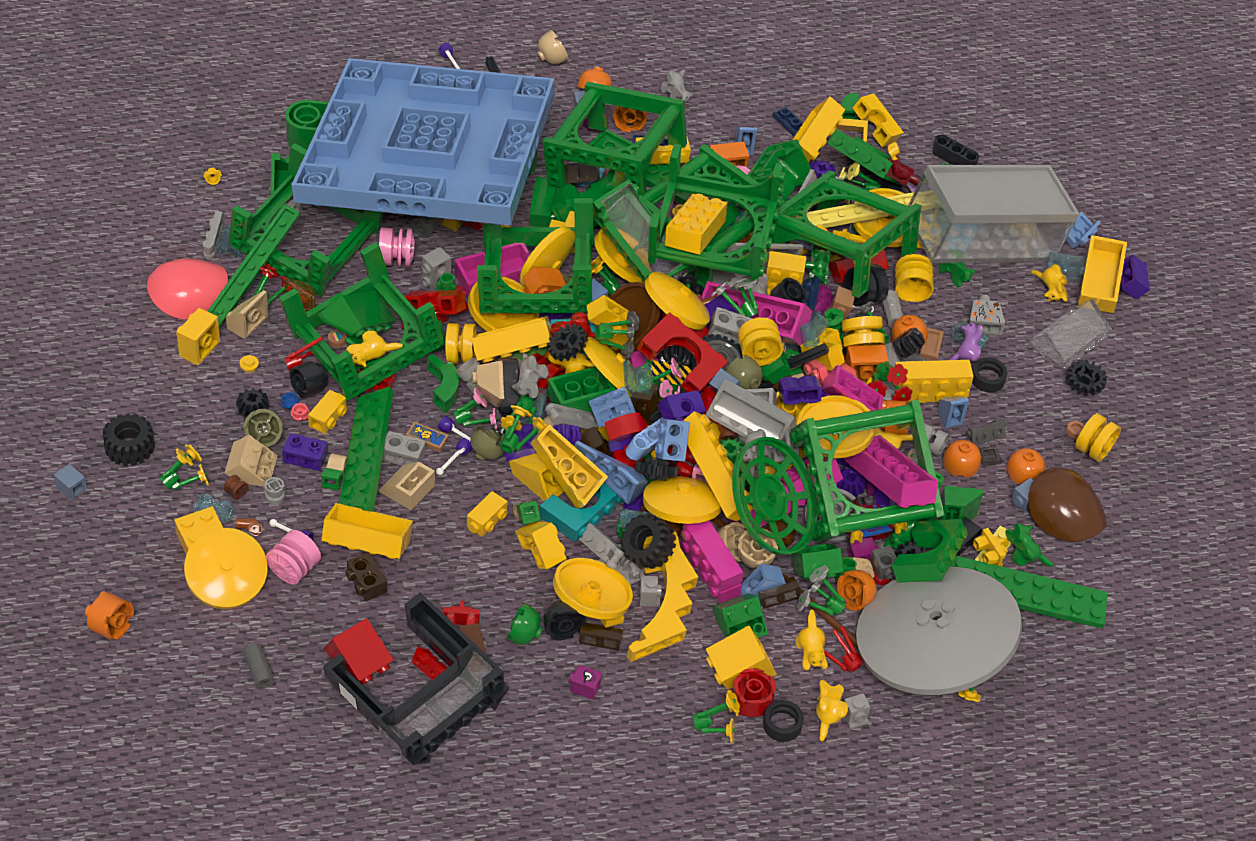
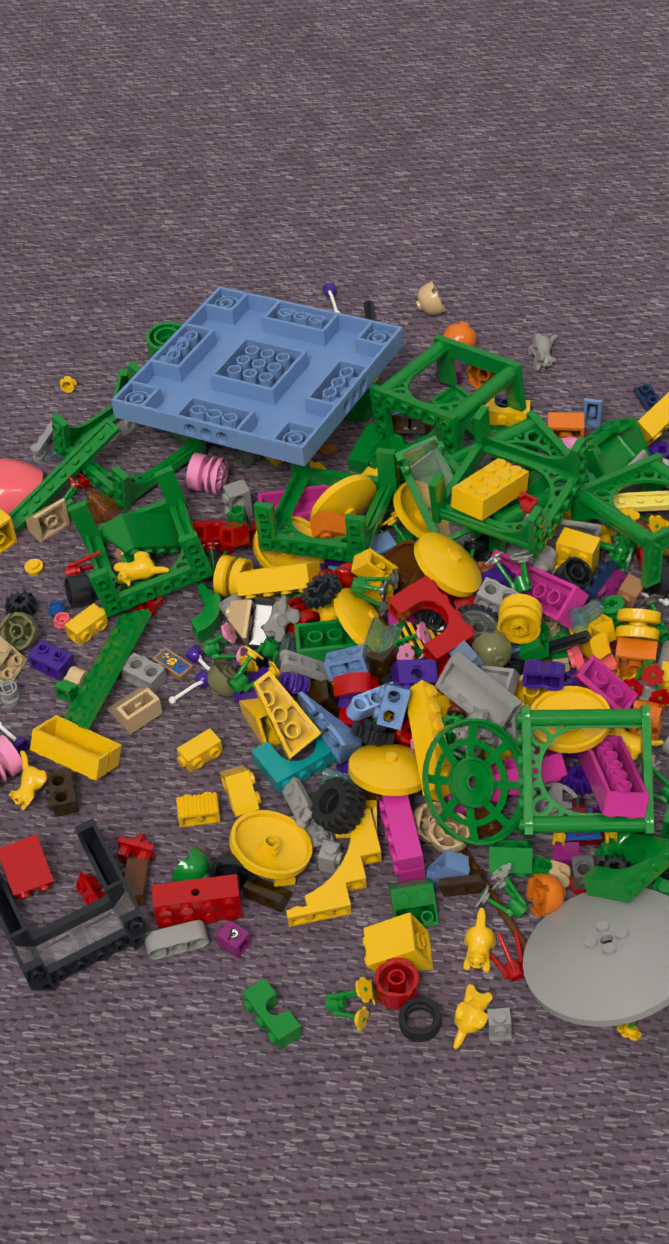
camera: 25 degrees right, 0 degrees up
(333, 570) = (31, 781): none -> yellow animal
(506, 569) = (198, 809): none -> yellow brick
(526, 512) = (235, 755): green leg -> none
(531, 693) = (176, 939): none -> light grey beam
(542, 653) = (197, 899): none -> red brick
(658, 754) = (281, 1028): none -> green arch
(730, 232) = (527, 502): none -> red tile

